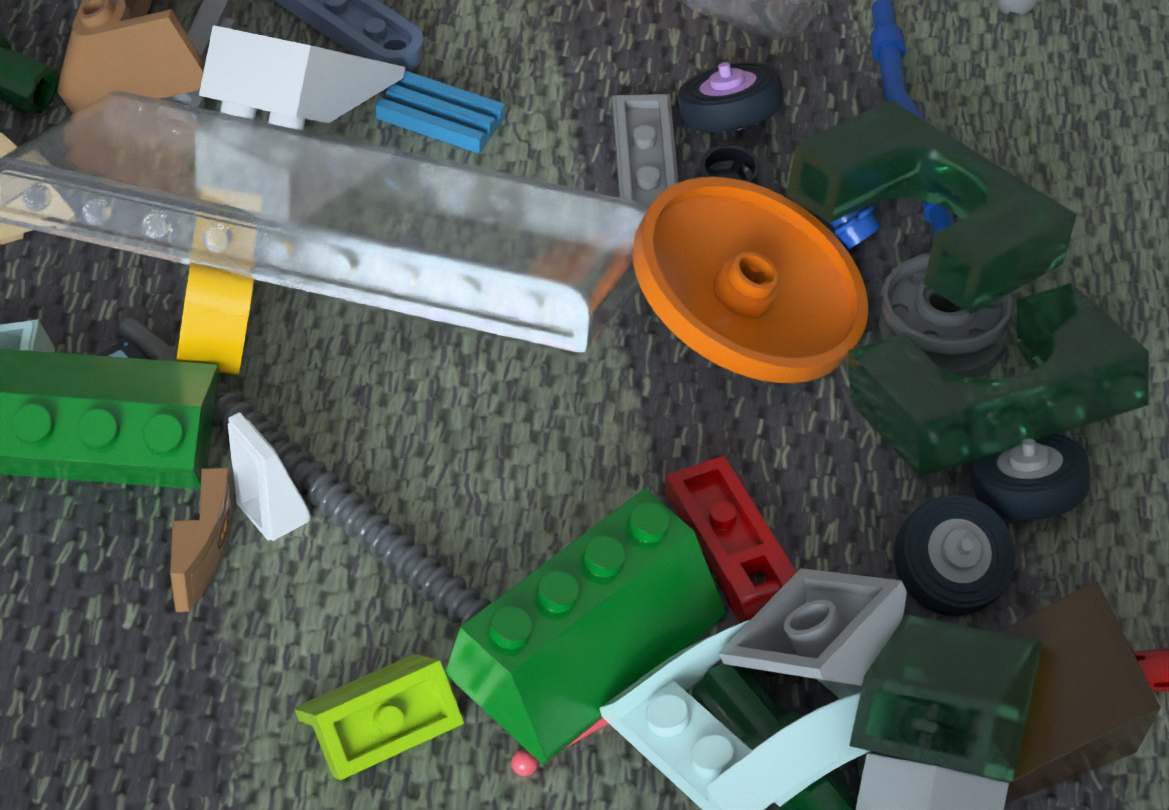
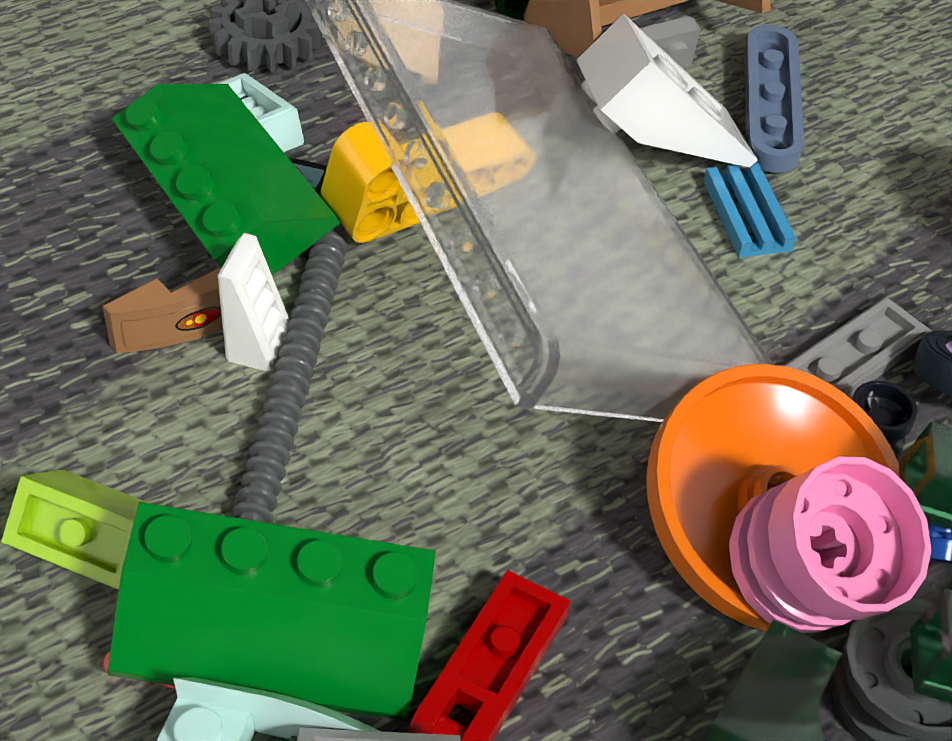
camera: 50 degrees right, 0 degrees up
(838, 273) = (831, 546): none -> bright pink wheel

